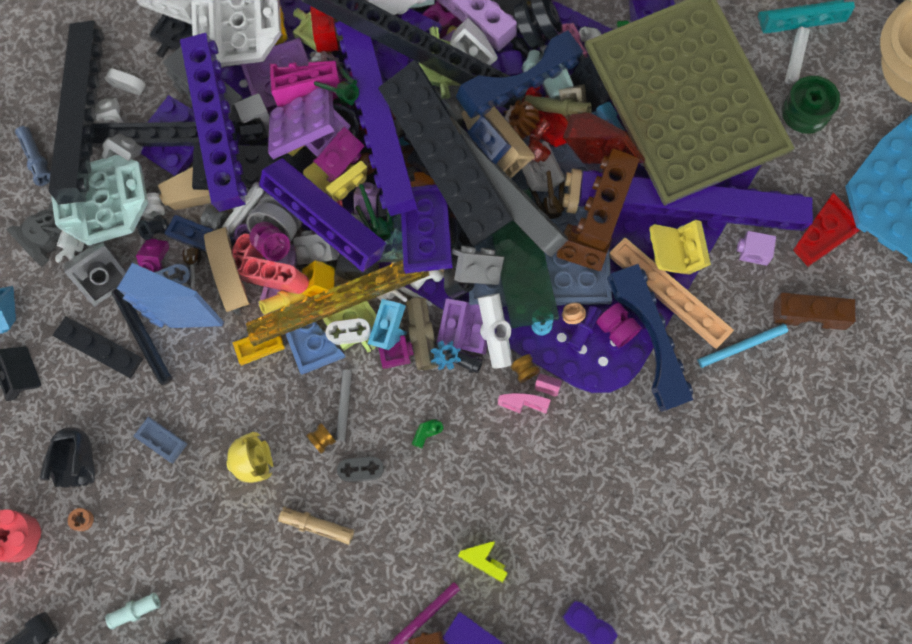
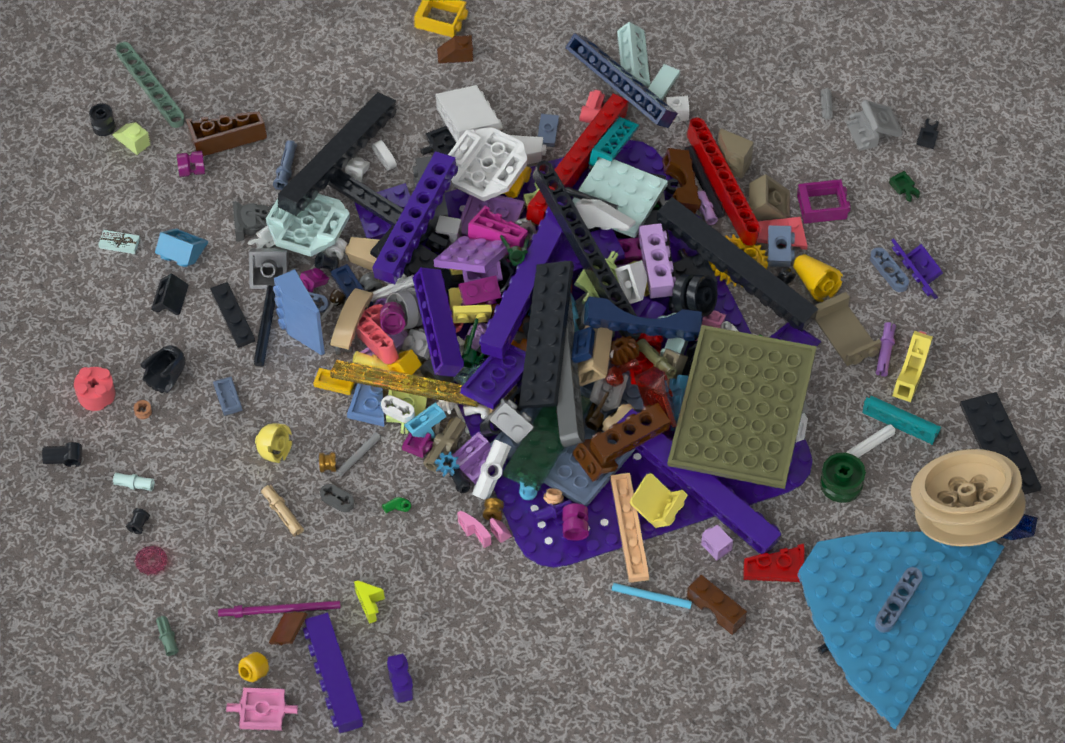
camera: 30 degrees right, 15 degrees down
(122, 146) = (347, 197): light grey bracket -> none
(669, 383) = (577, 580): dark blue arch -> none

